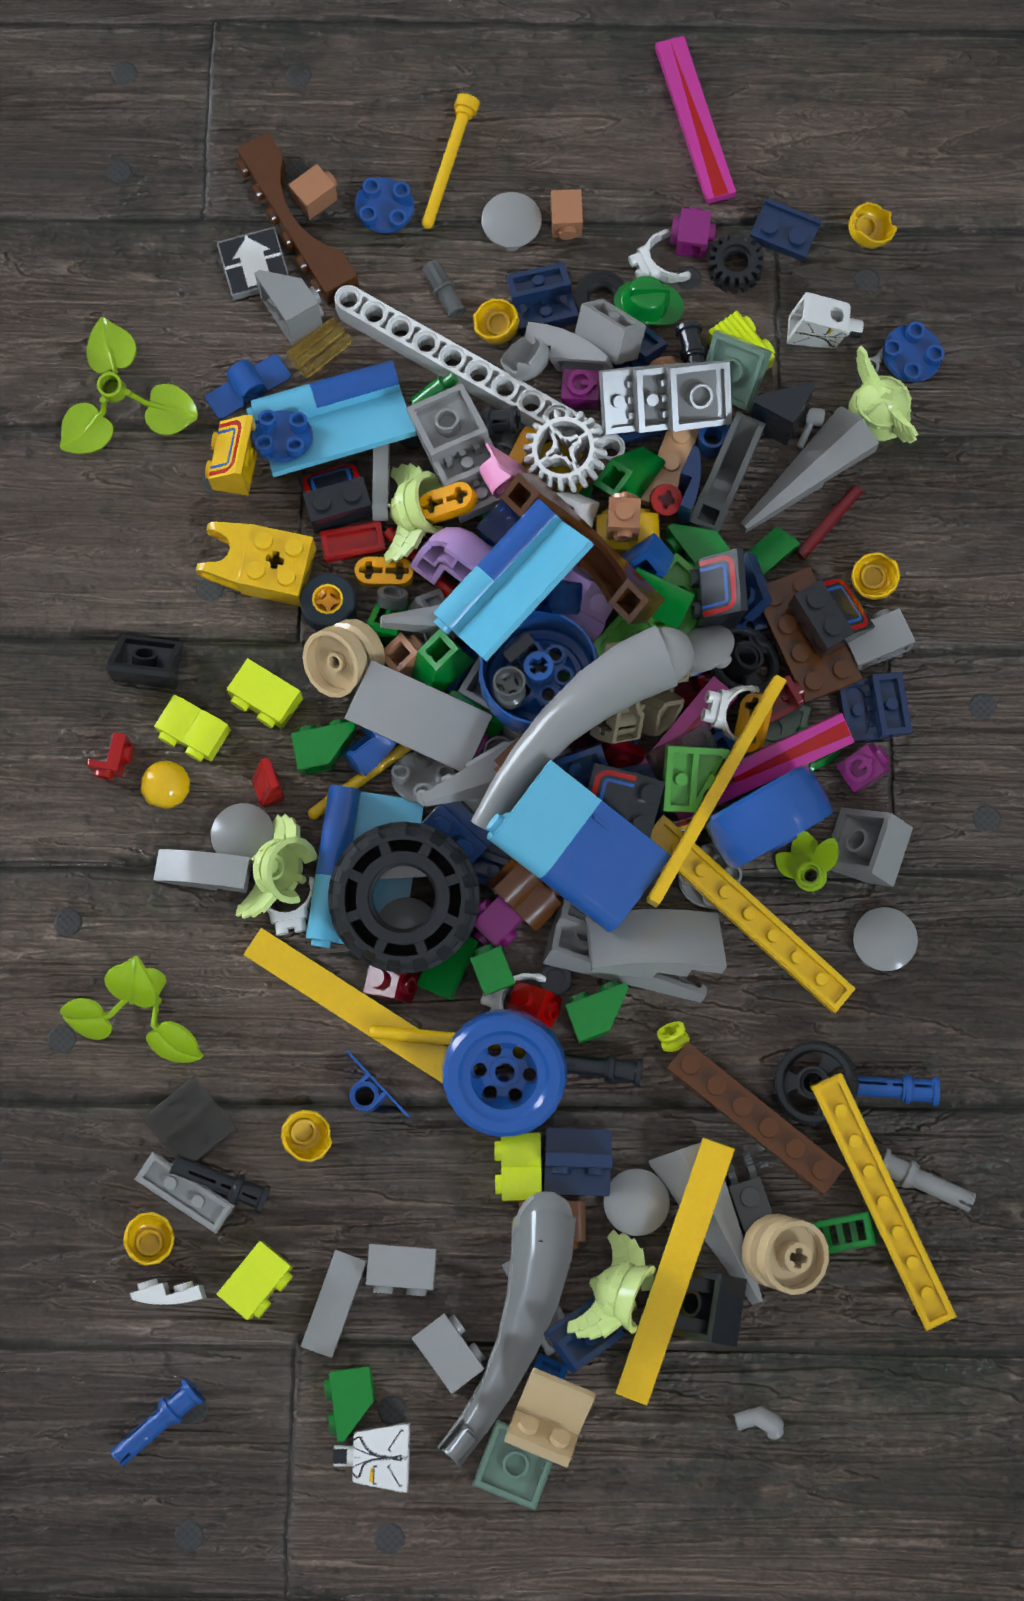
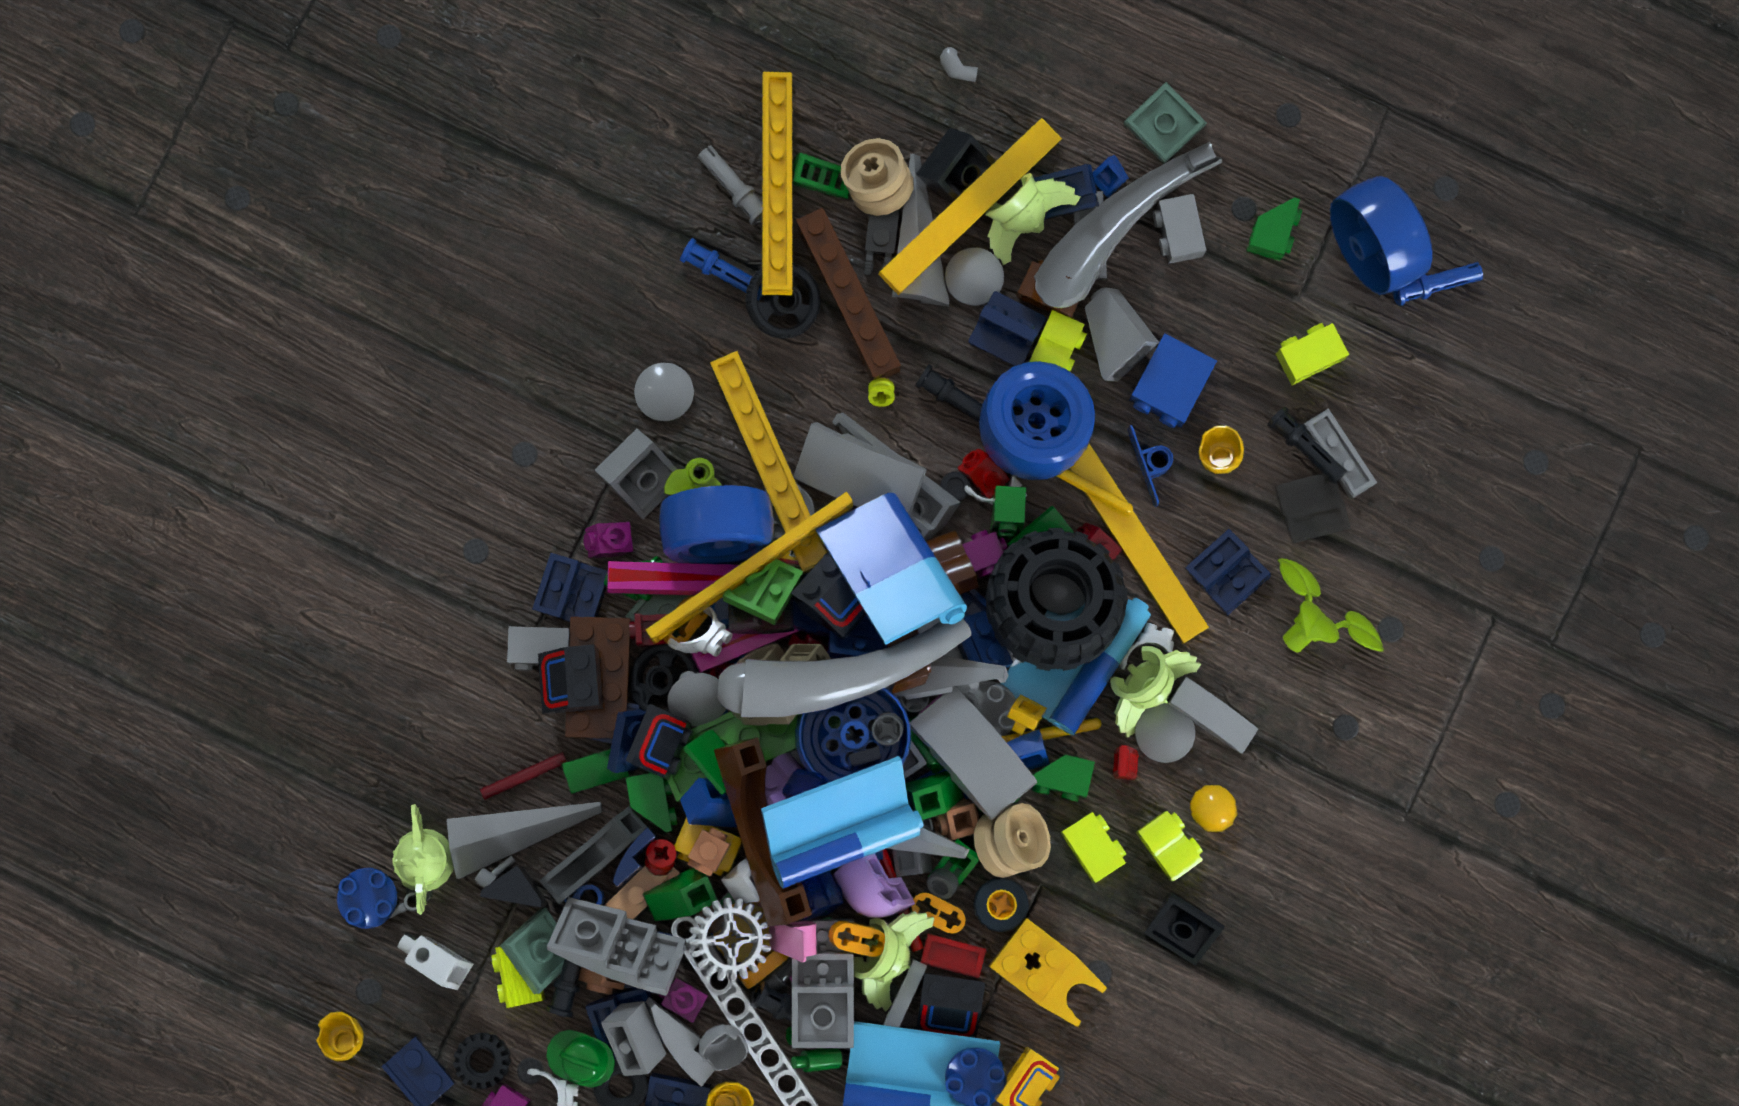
camera: 160 degrees left, 5 degrees up
(119, 754) = (1243, 850): red bracket -> none
(148, 1238) = (1385, 427): yellow hair -> none
(155, 1293) = (1395, 379): white slope -> none
(233, 1436) = (1381, 235): none -> blue wheel
(247, 1019) = (1228, 572): none -> dark blue slope
(333, 1303) = (1255, 310): light grey tile -> none
(378, 1456) = (1271, 176): white torso -> none
(384, 783) = (1025, 714): none -> yellow tile
(386, 1184) = (1172, 381): none -> blue brick
(401, 1268) = (1189, 310): light grey brick -> none
(465, 1207) = (1117, 333): none -> light grey slope
(549, 1417) = (1124, 141): tan bracket -> none
(595, 1014) = (935, 440): green slope -> none
(875, 576) = (510, 703): yellow hair -> none

